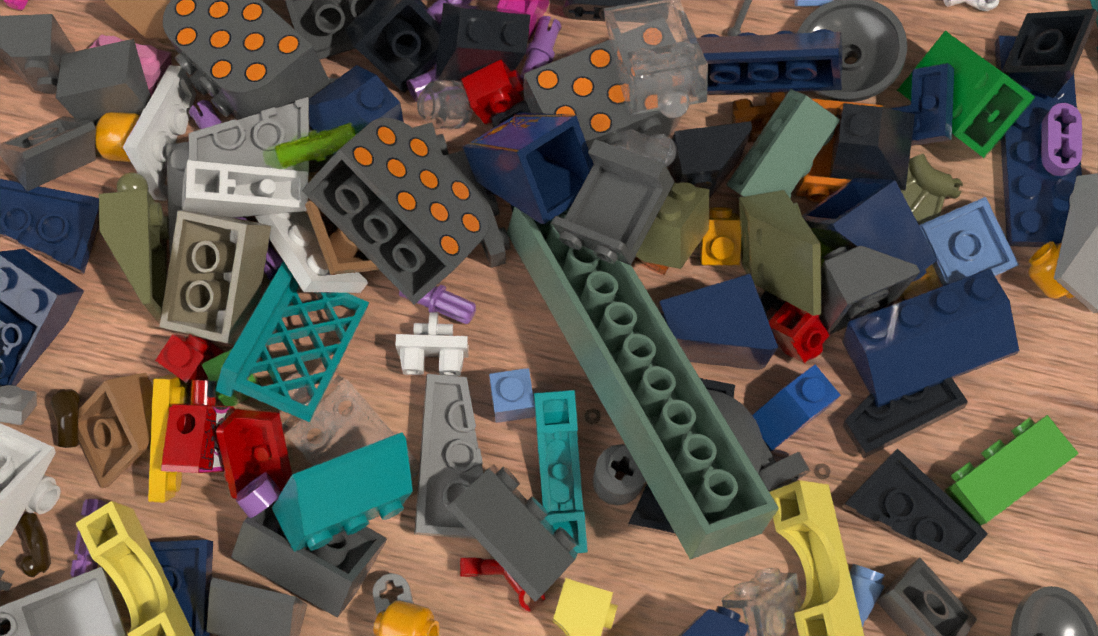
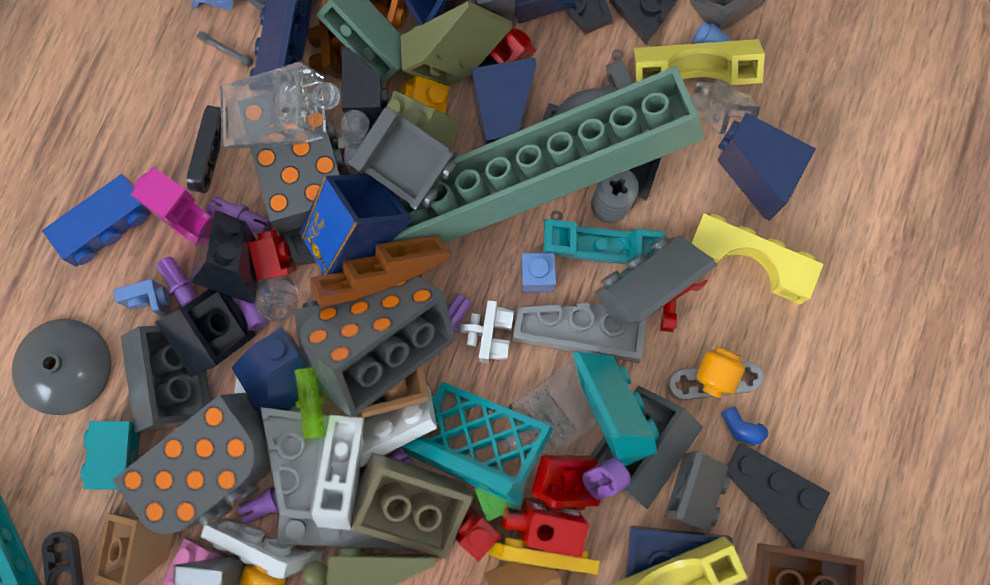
camera: 80 degrees left, 5 degrees up
(487, 213) = (390, 266): none -> dark orange slope
(795, 407) = (569, 61): blue slope -> none

